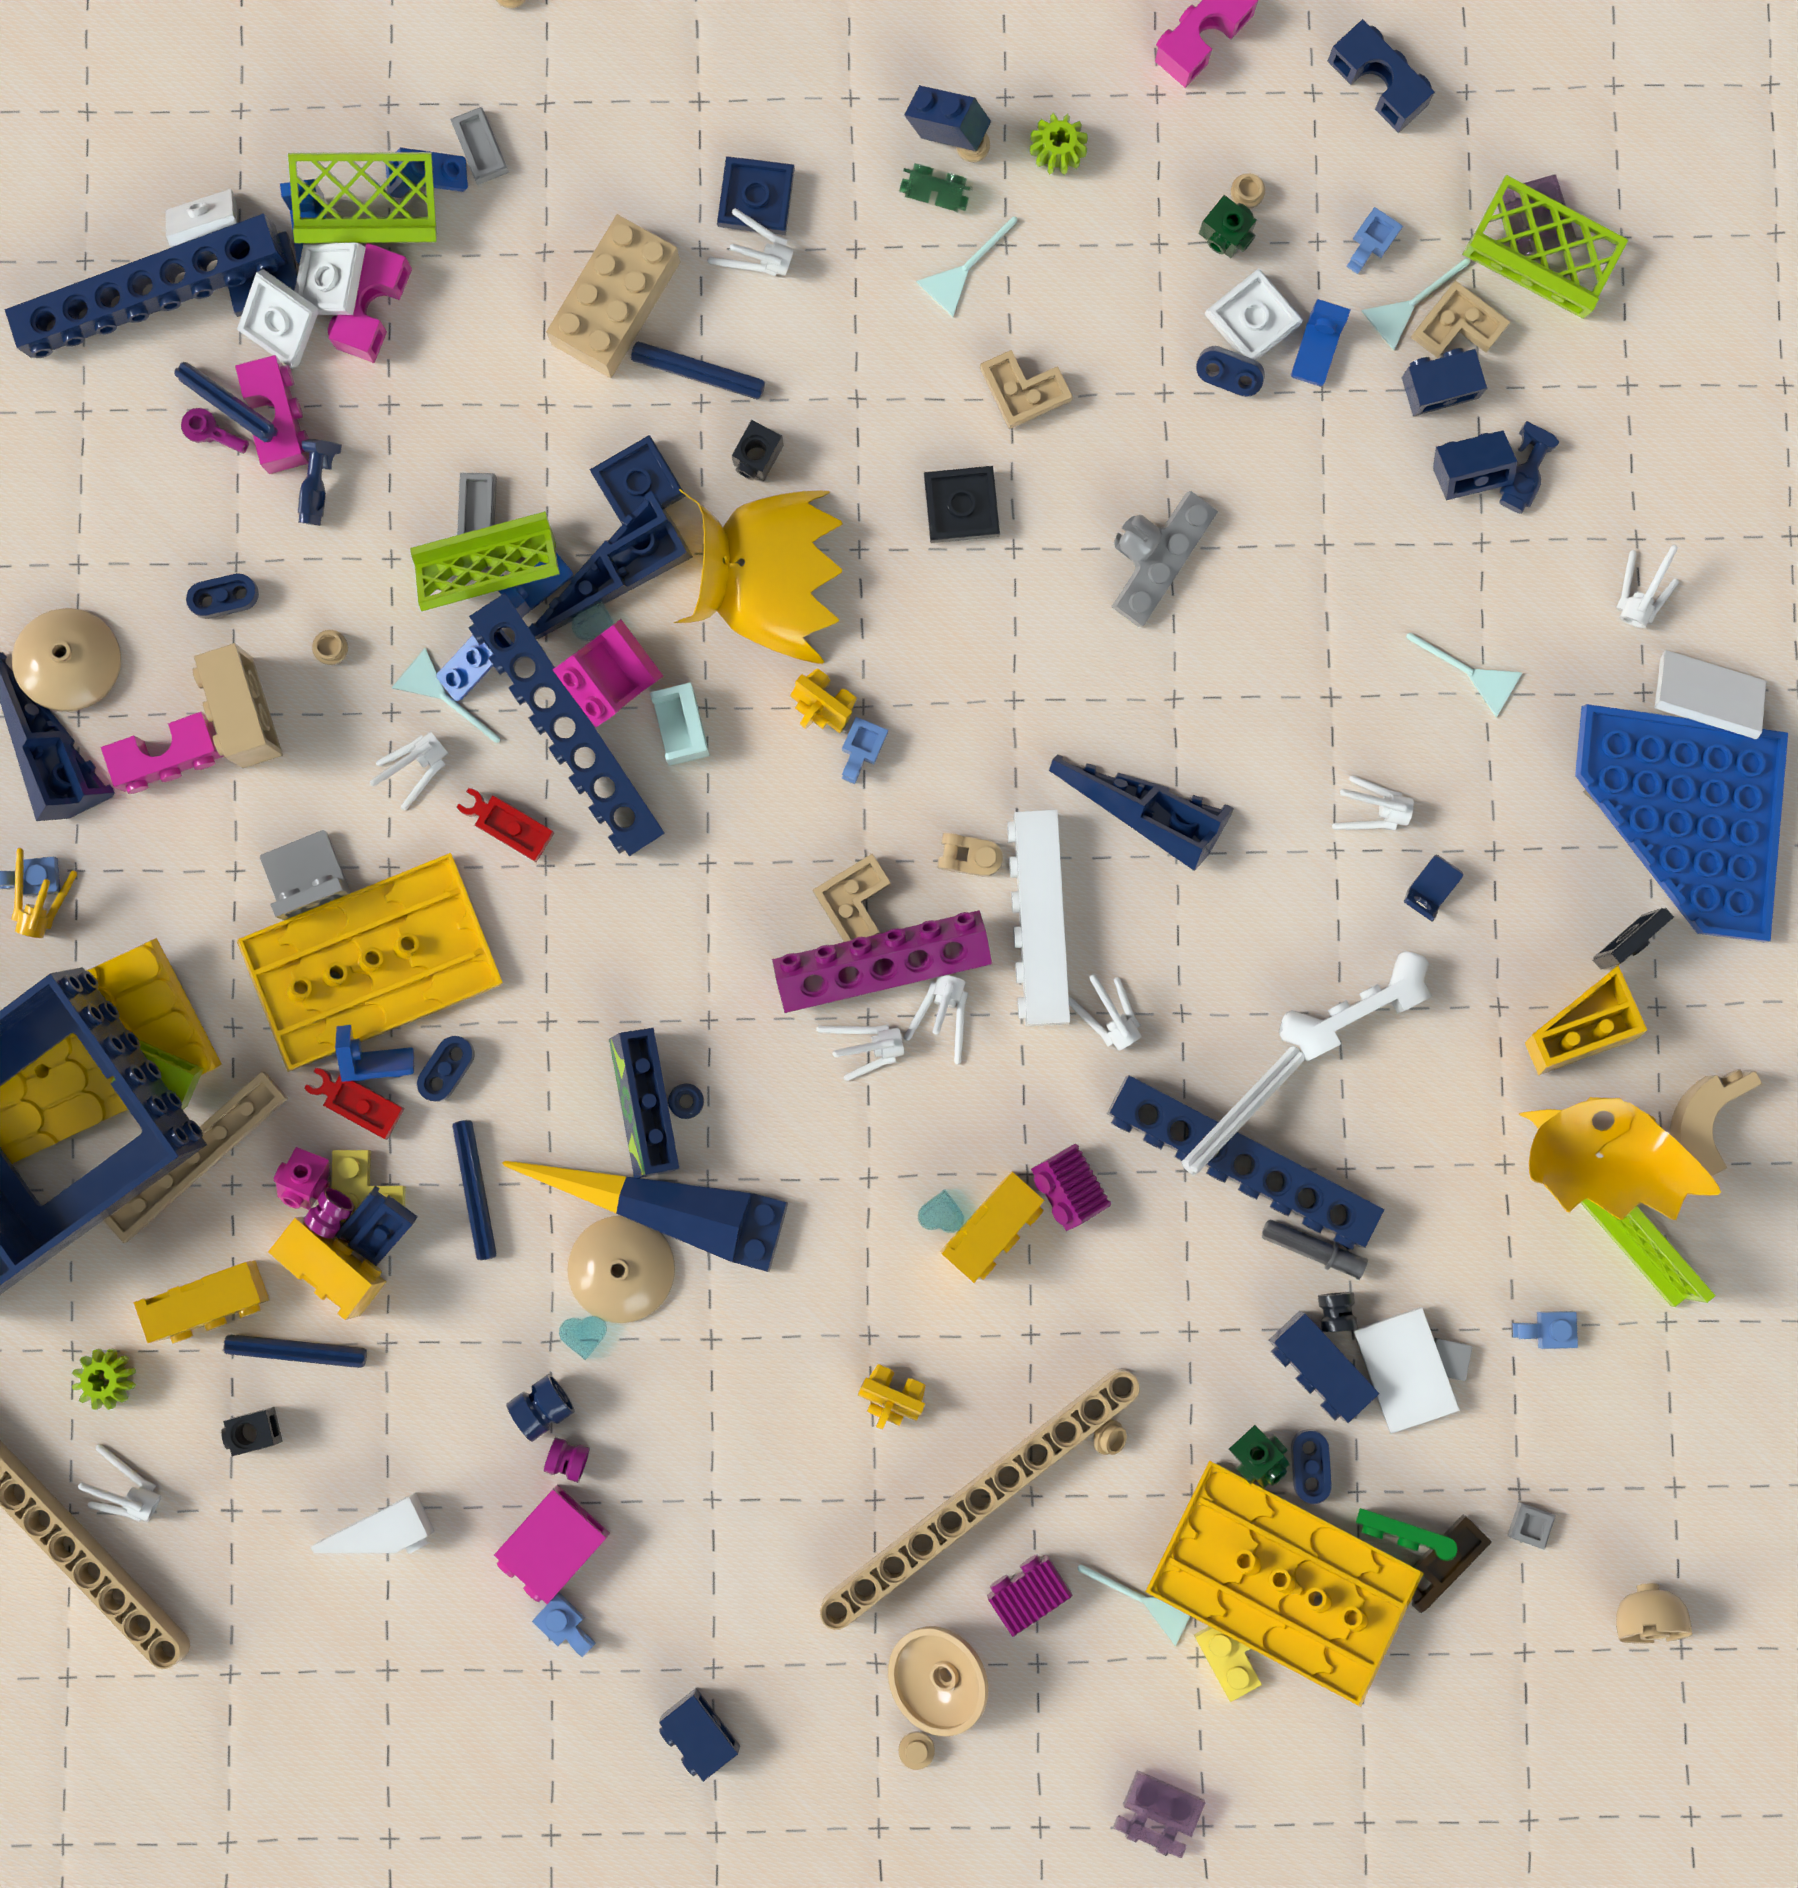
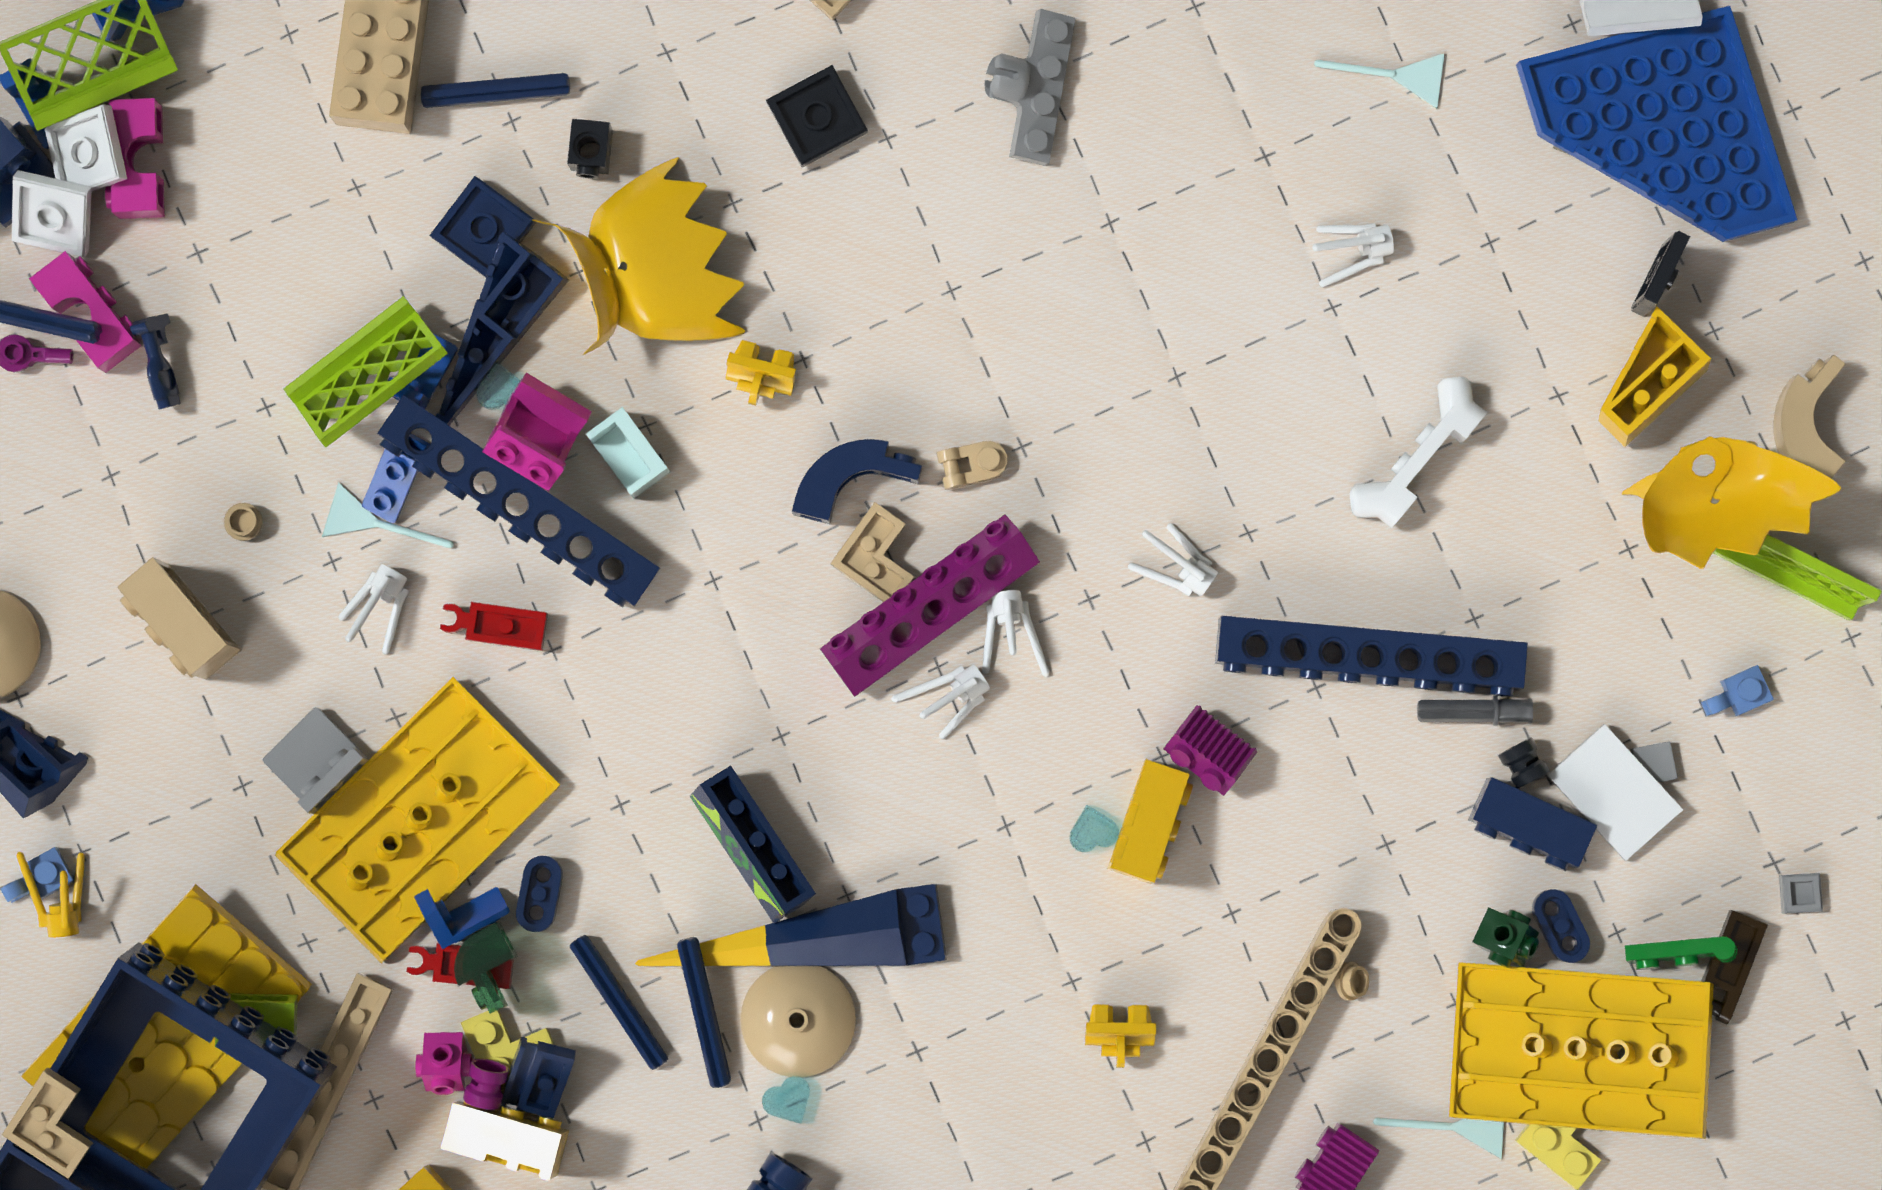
camera: 20 degrees left, 0 degrees up
(191, 747) = (147, 678): dark pink arch -> none
(223, 594) = (113, 514): dark blue plate -> none
(366, 1104) = (477, 959): none -> clear green brick
(476, 501) = (328, 315): light grey tile -> none
(542, 1229) = (704, 1012): none -> dark blue axle
(677, 1093) = (780, 825): dark blue plate -> none
(856, 810) = (842, 464): none -> dark blue arch
(862, 744) = (819, 397): medium blue plate -> none
(1040, 918) = (1069, 497): white brick -> none
(1171, 822) = (1159, 347): dark blue wedge -> none
(1243, 1110) = (1348, 603): white axle -> none
(1432, 886) = (1443, 304): dark blue bracket -> none

